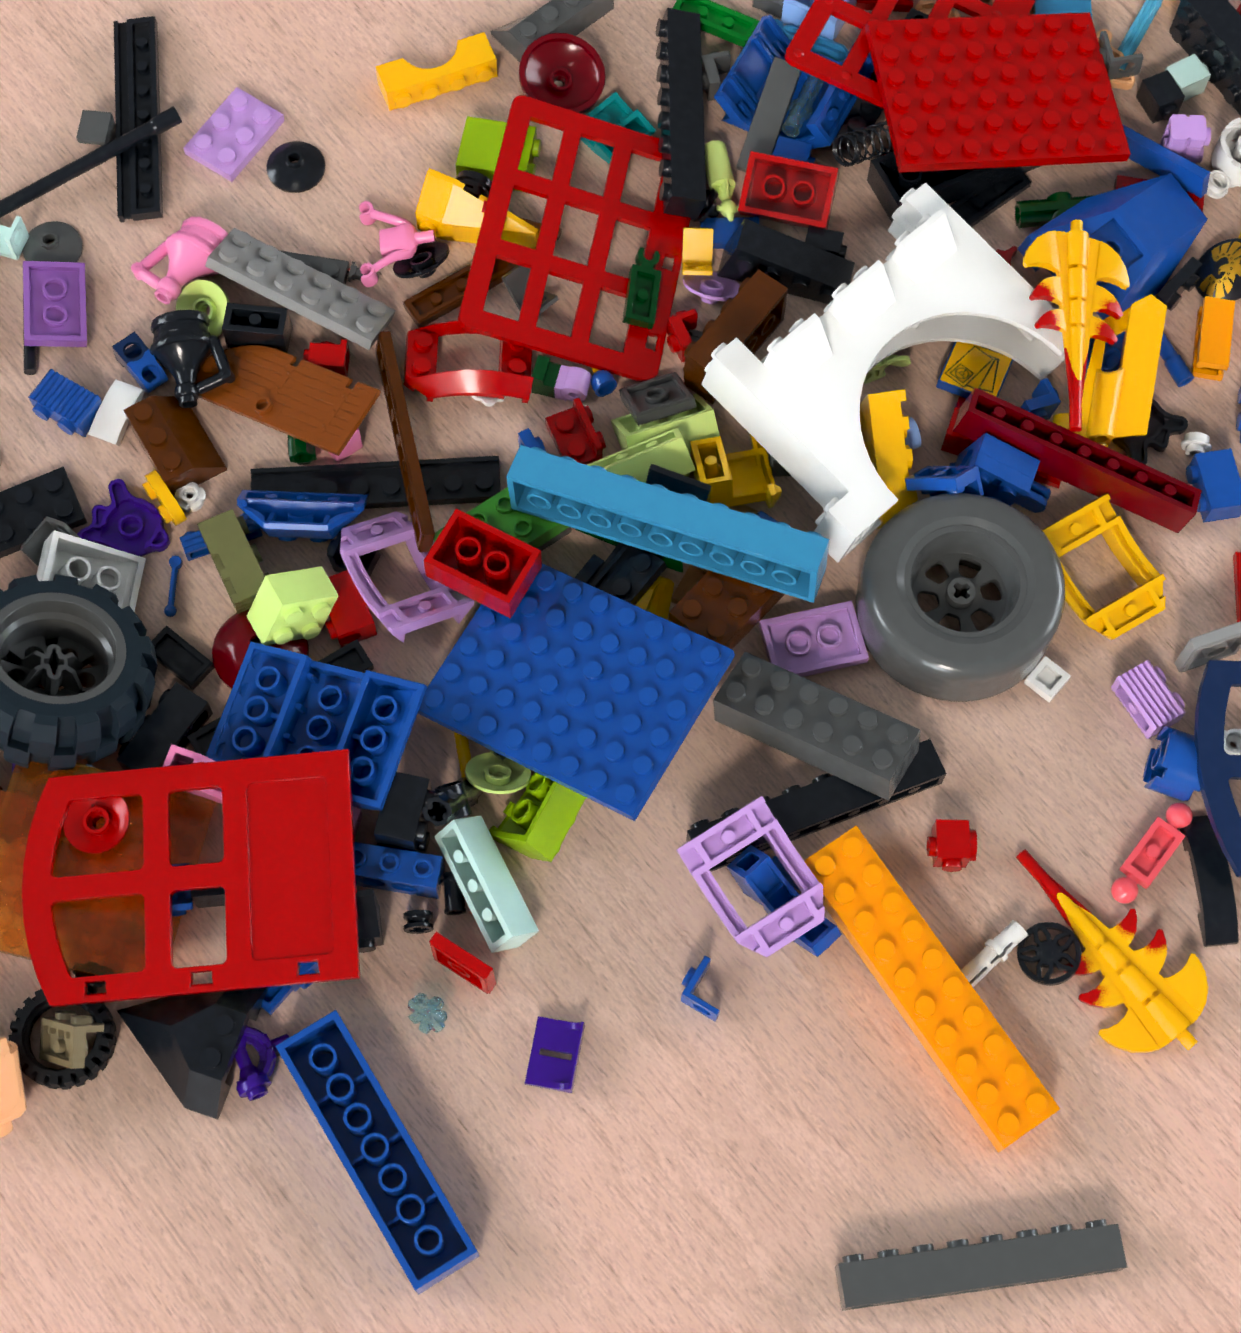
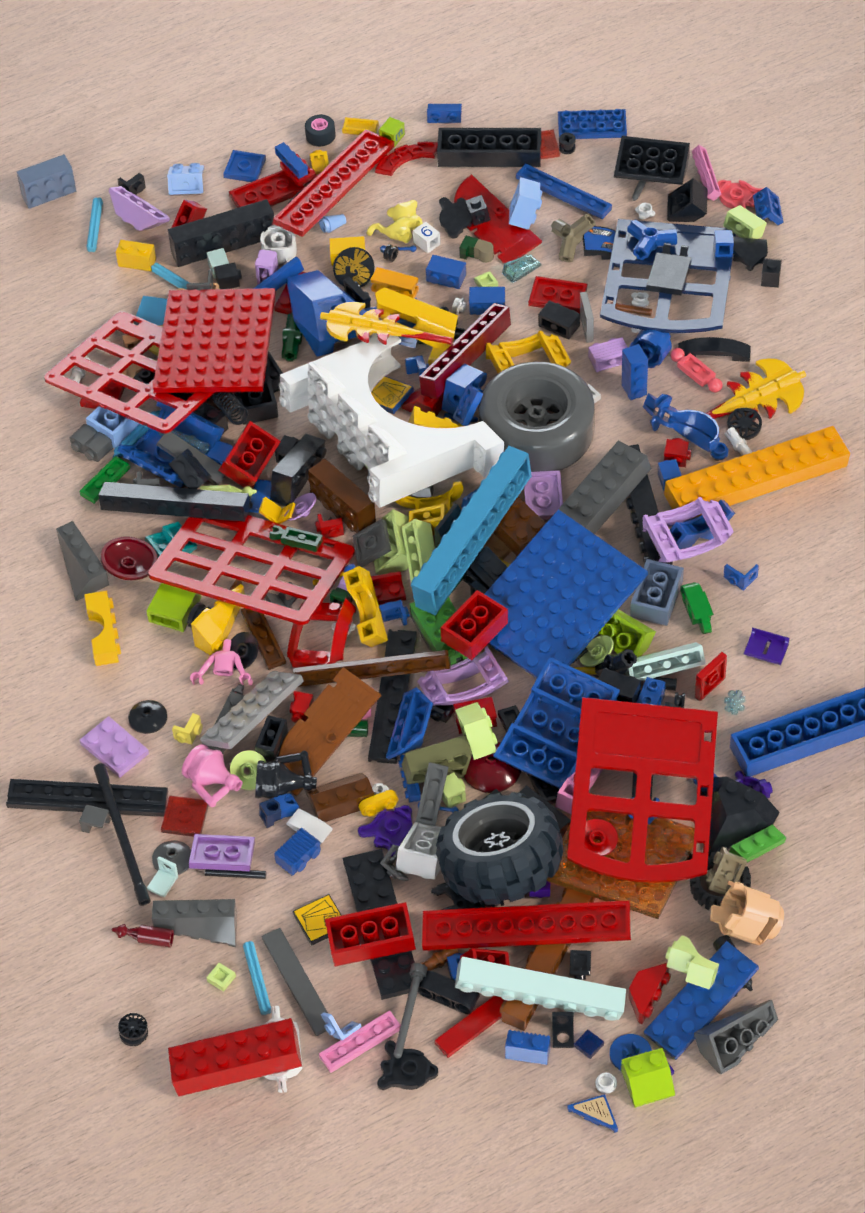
camera: 75 degrees left, 15 degrees down
(119, 245) = (184, 816): none -> clear red tile
(135, 1087) = (758, 843): none -> bright green plate
(174, 565) = (432, 793): none -> dark grey plate
(199, 596) = (453, 791): none -> yellowish green brick
(268, 222) = (191, 730): none -> light yellow bracket
(489, 426) = (371, 624): none -> yellow arch
(617, 923) = (697, 606): none -> green piece
(631, 852) = (657, 592): none -> sand blue brick
(736, 114) = (189, 470): none -> black brick
(900, 838) = (668, 470): none -> blue brick
(975, 918) = (720, 452): none -> blue plate
(1017, 850) = (691, 424): none -> blue piece
(1097, 740) = (634, 372): none -> blue brick
(1206, 603) = (559, 319): none -> black brick

